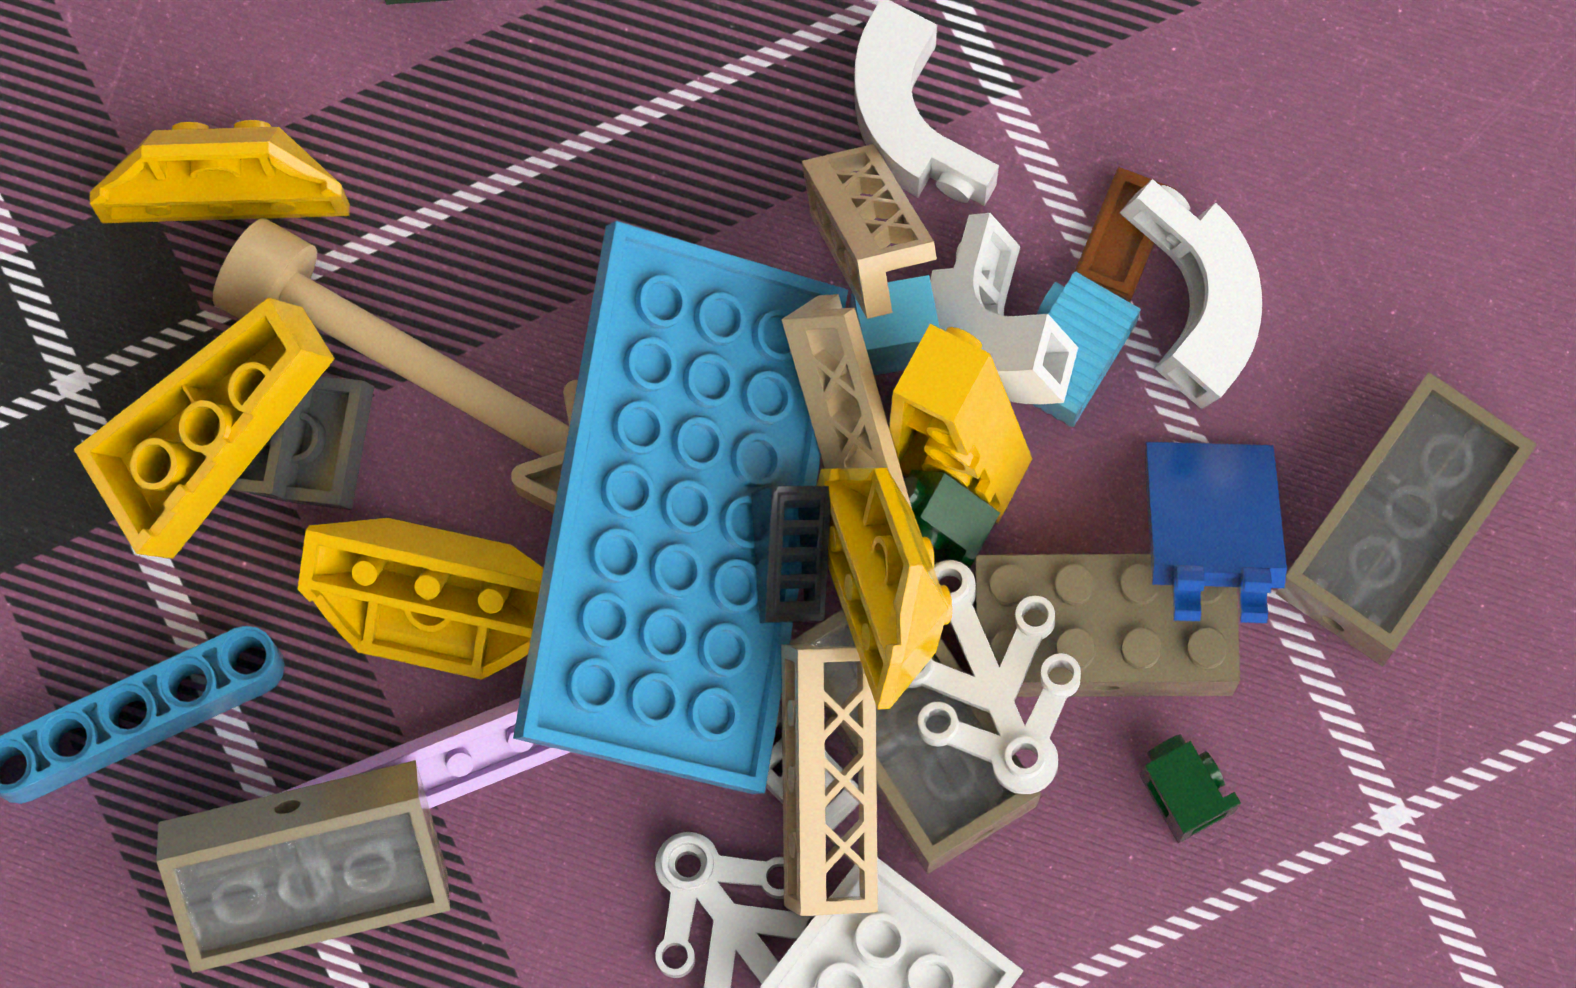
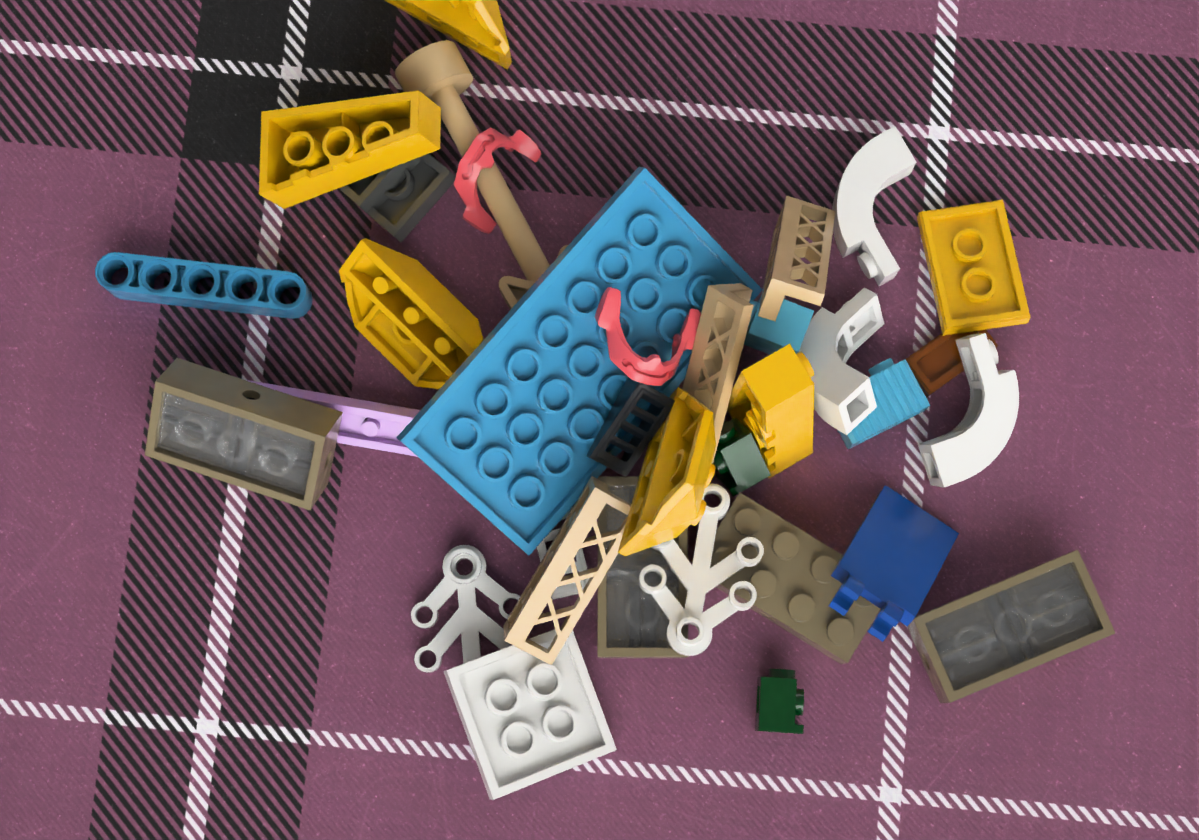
camera: 30 degrees right, 5 degrees up
(387, 346) = (480, 157): none -> coral helmet
(770, 468) = (641, 369): none -> coral helmet
(1085, 112) = (973, 267): none -> yellow tile

